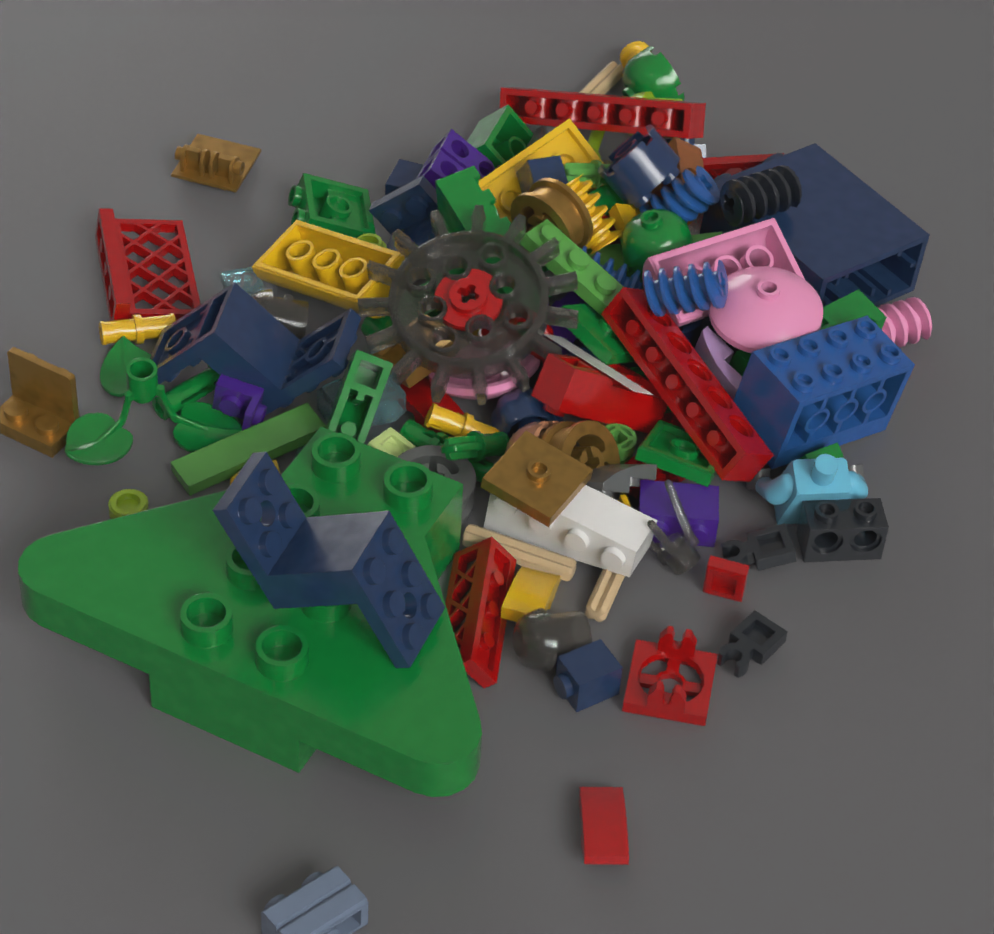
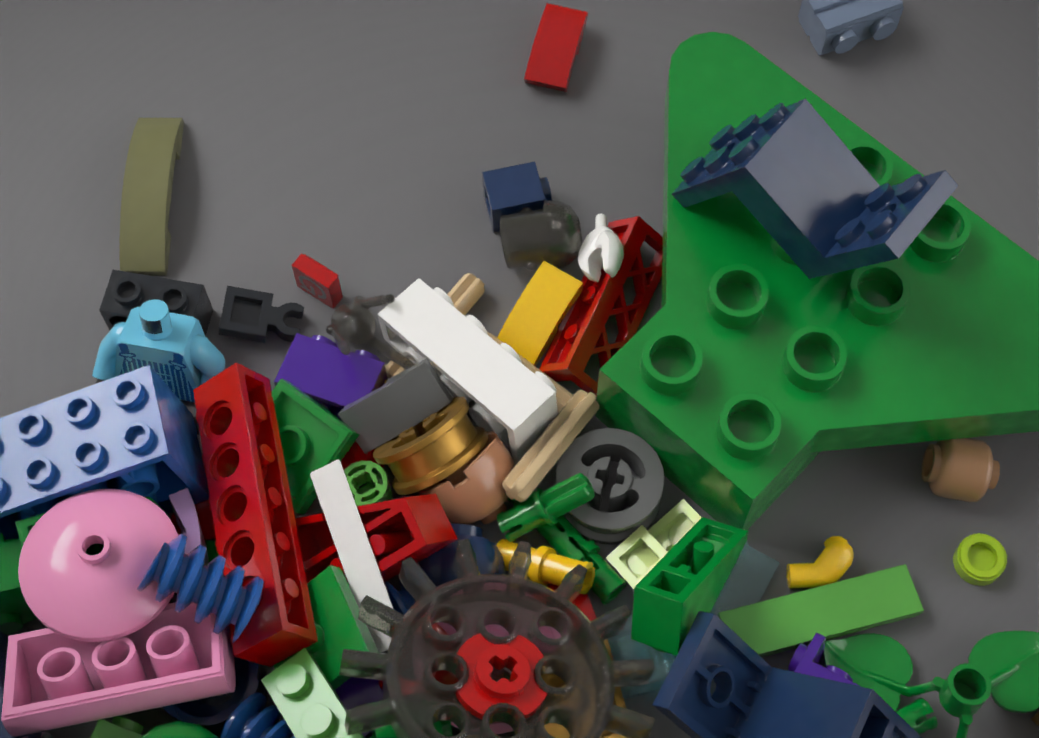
camera: 160 degrees left, 20 degrees up
(477, 497) = (550, 446): none -> tan axle
(493, 626) = (600, 250): none -> white hand
(536, 478) = (504, 375): pearl gold plate -> none
(657, 701) = (394, 200): red piece -> none
(752, 639) = (323, 205): black plate -> none
(915, 630) = (147, 195): none -> olive slope

